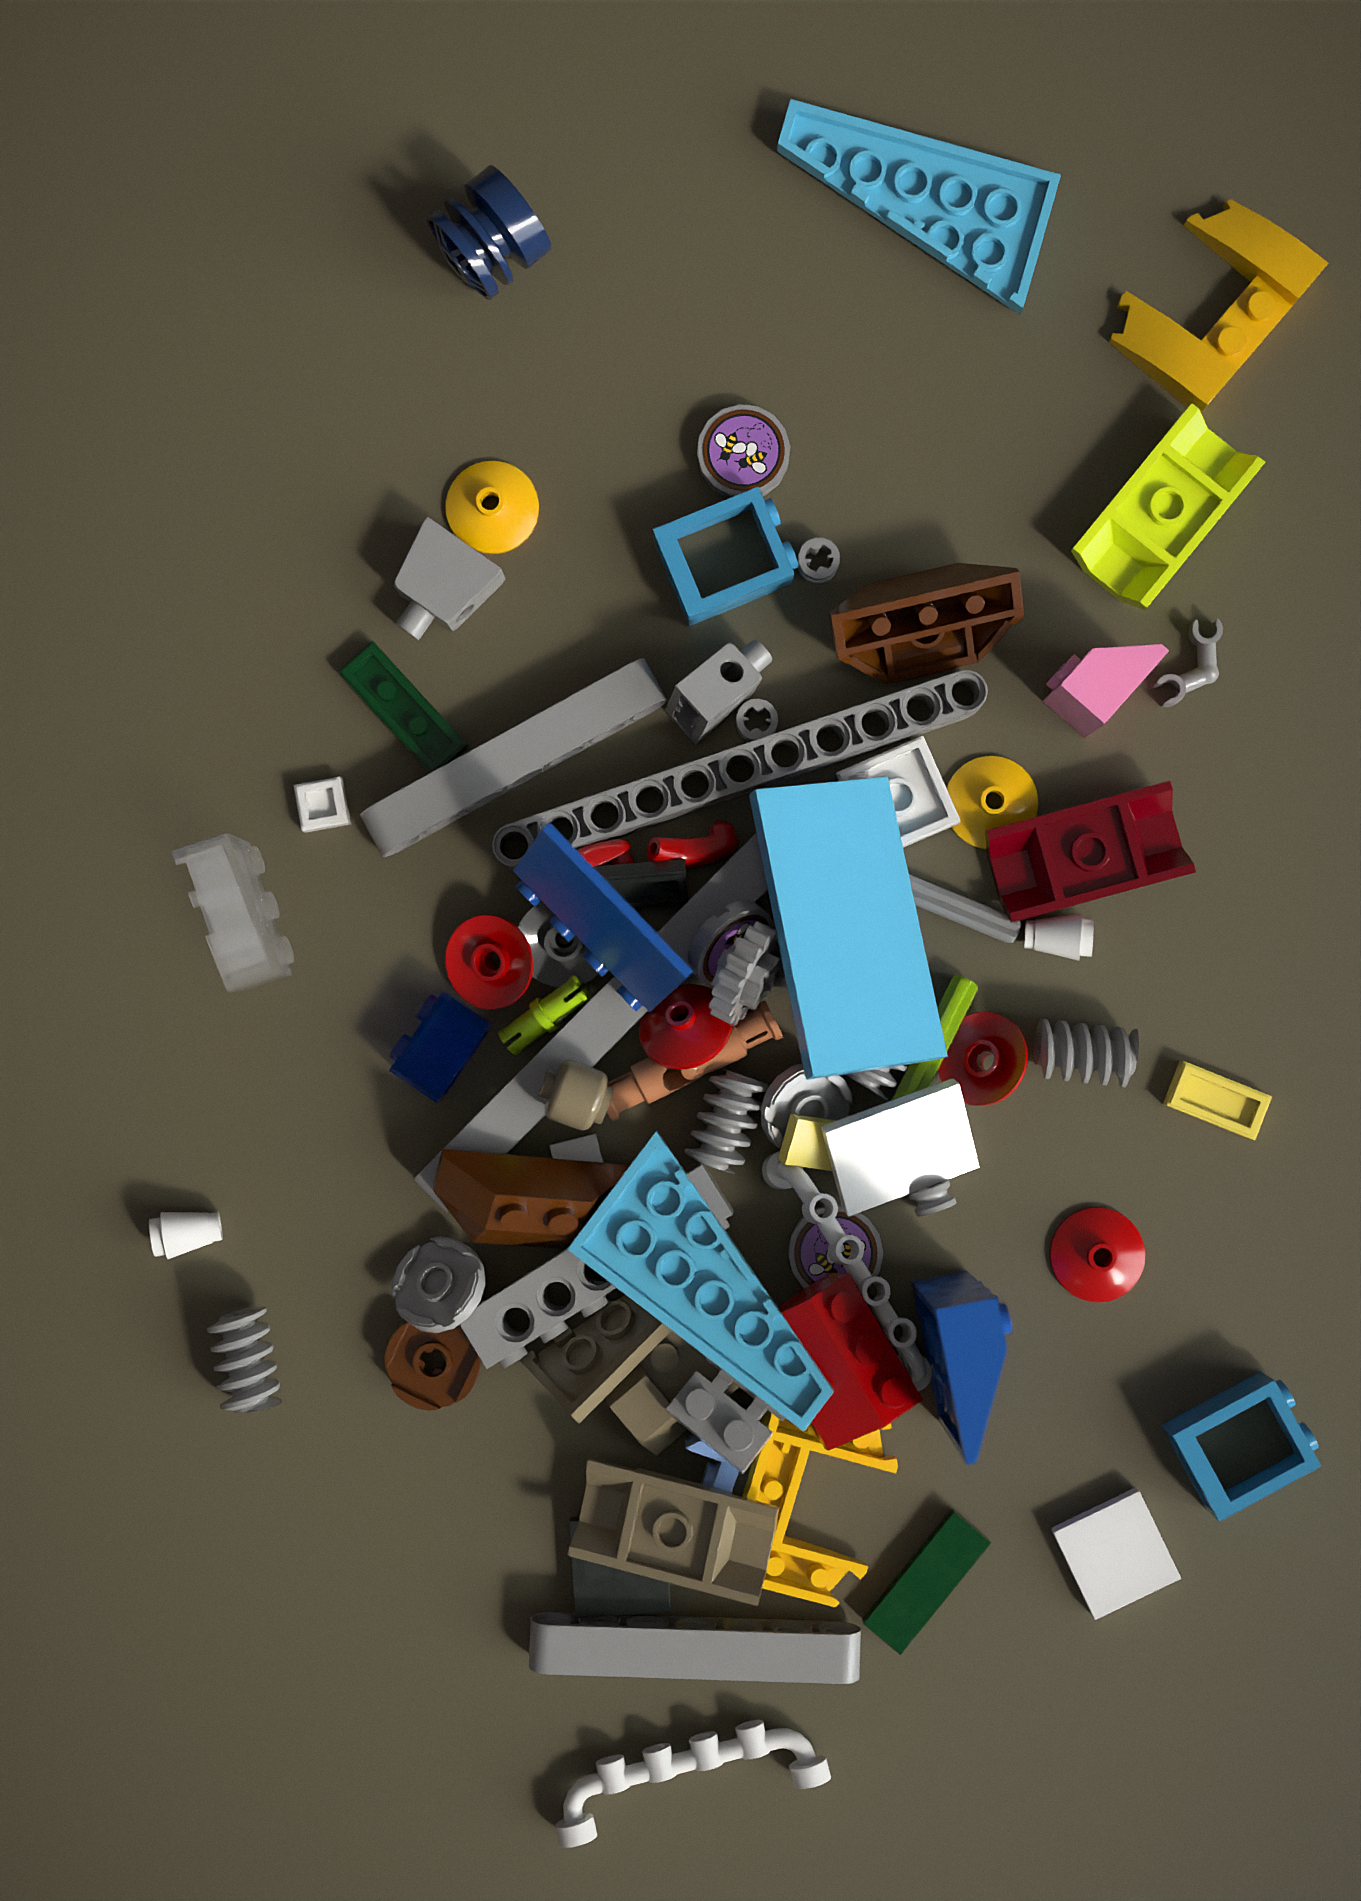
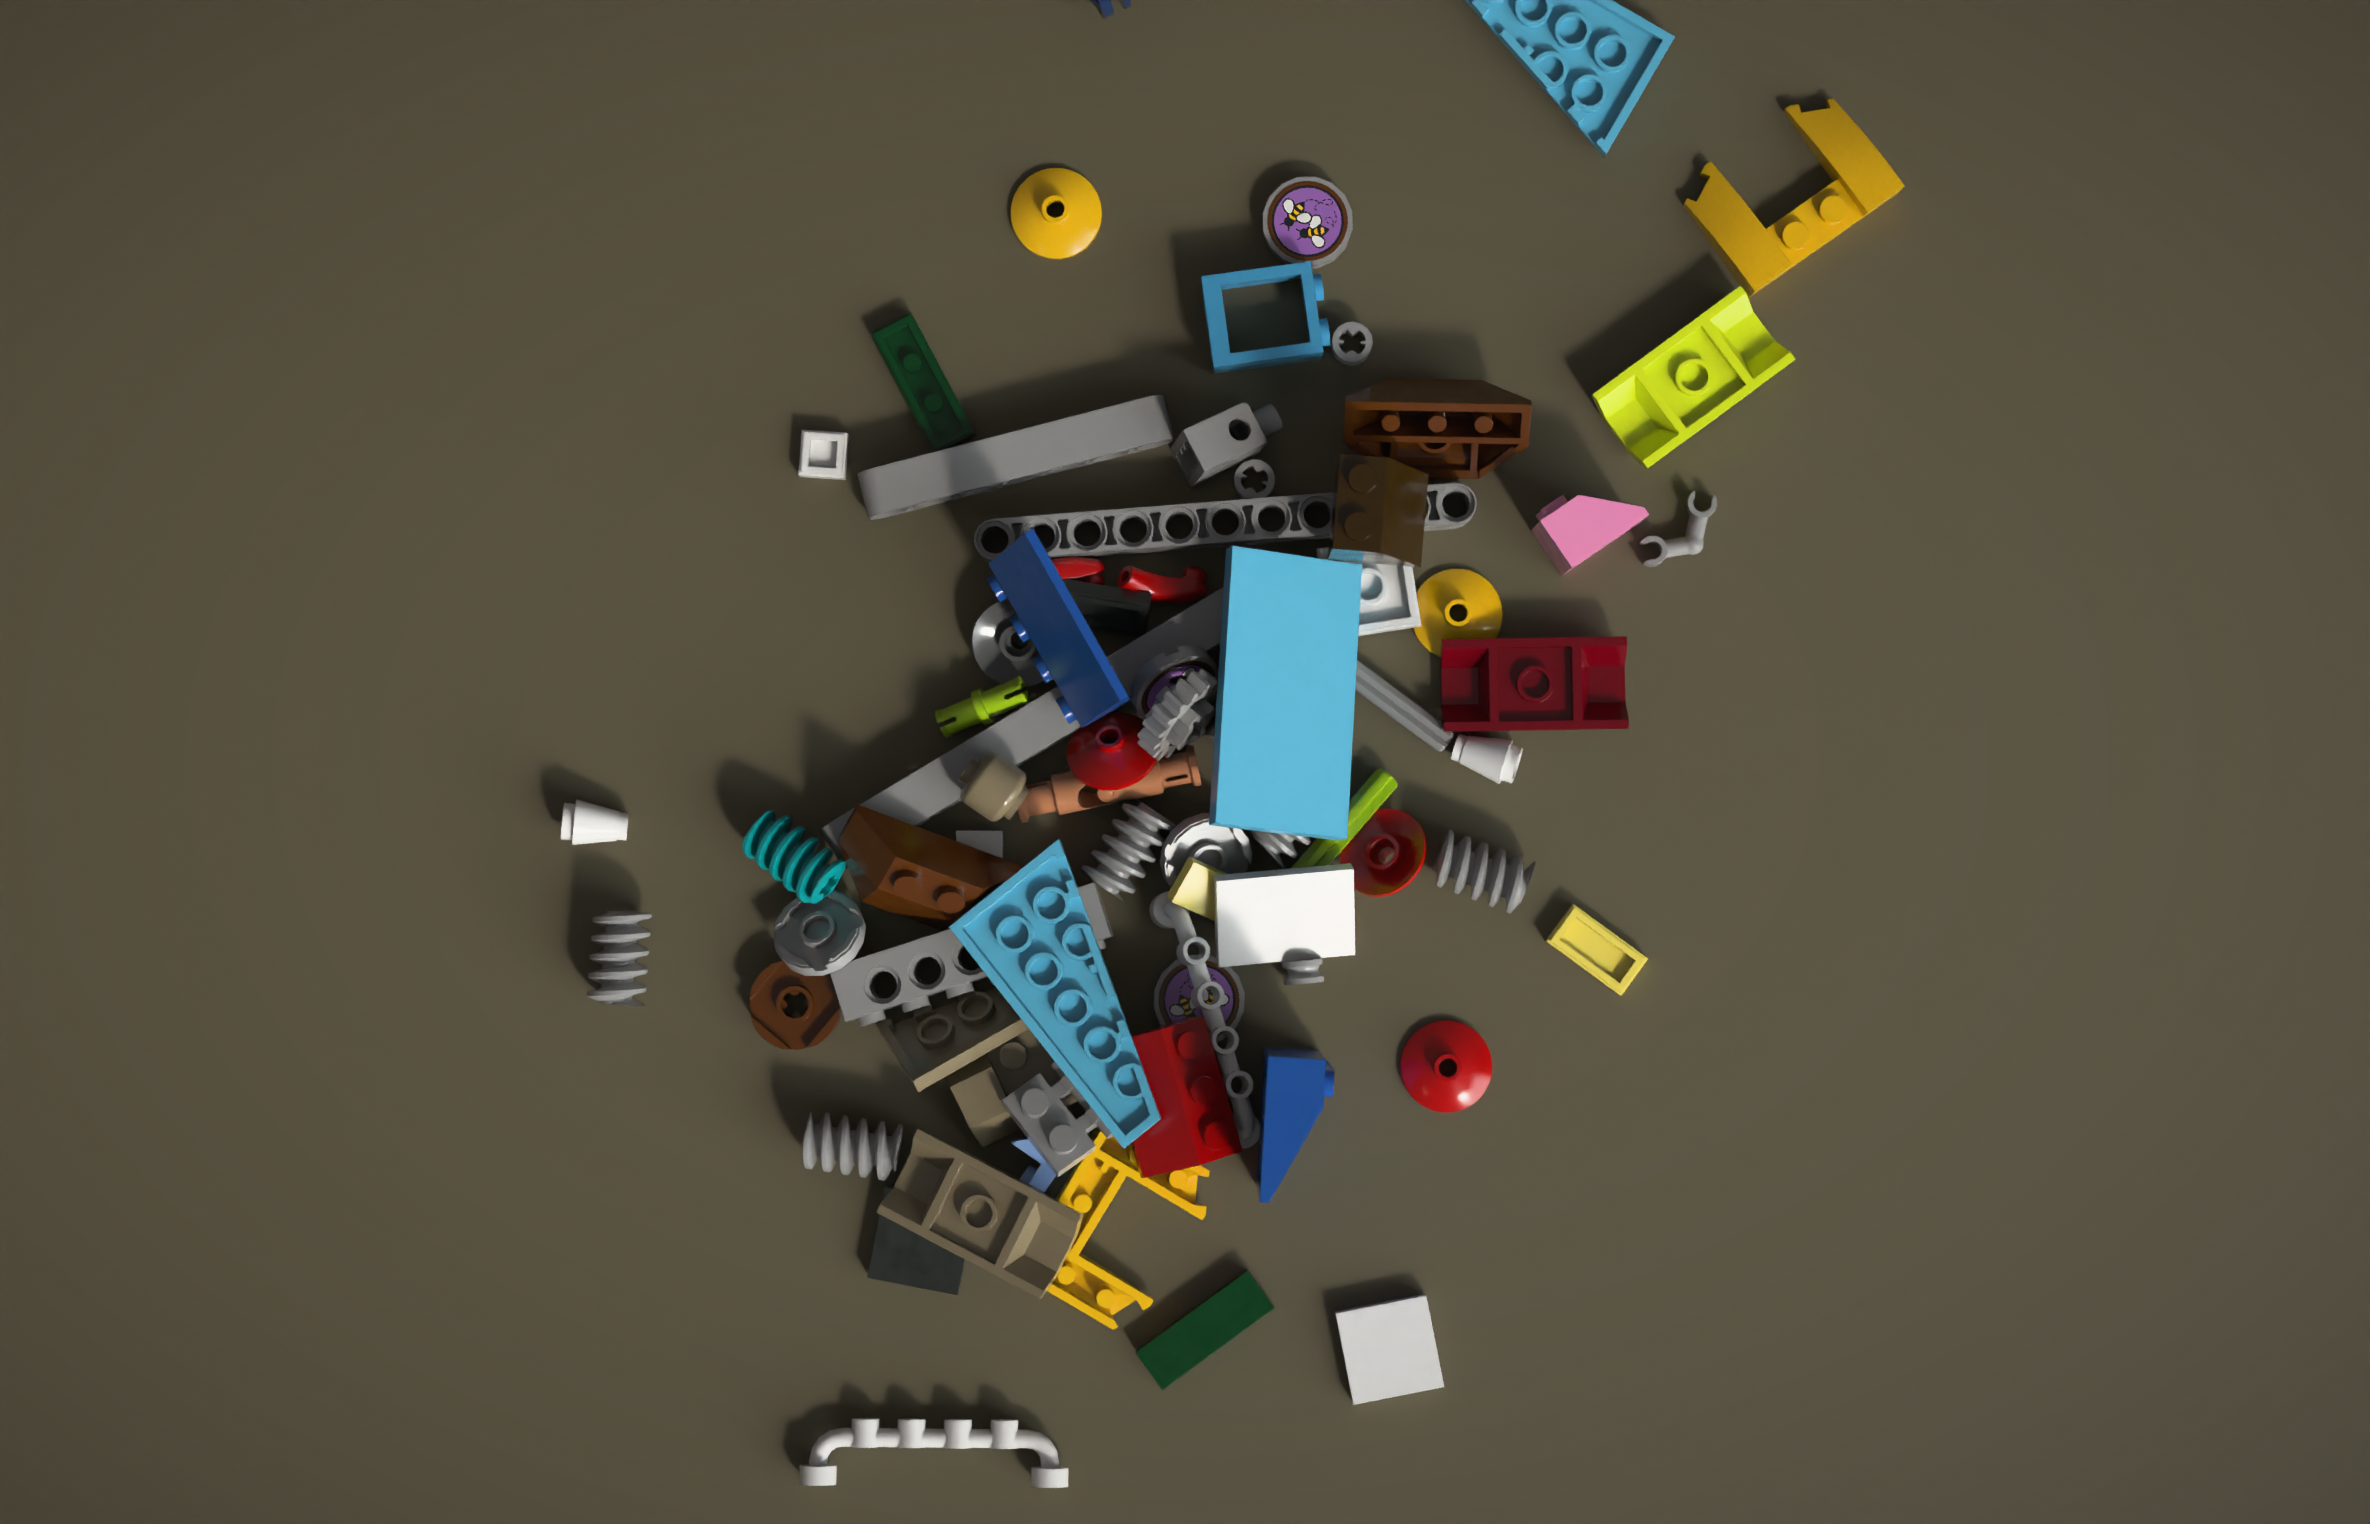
camera: 15 degrees right, 0 degrees up
(237, 911) = (719, 536): clear wedge -> none
(392, 1218) = (791, 859): none -> teal piece
(439, 1046) = (877, 709): clear blue brick -> none
(443, 581) = (991, 273): light grey torso -> none
(471, 964) = (926, 638): red dish -> none
(525, 1492) = (851, 1146): none -> light grey piece
(695, 1648) = (972, 1333): light grey beam -> none
(890, 717) = (1377, 511): none -> dark brown slope
(1184, 1428) = (1486, 1287): dark azure window -> none

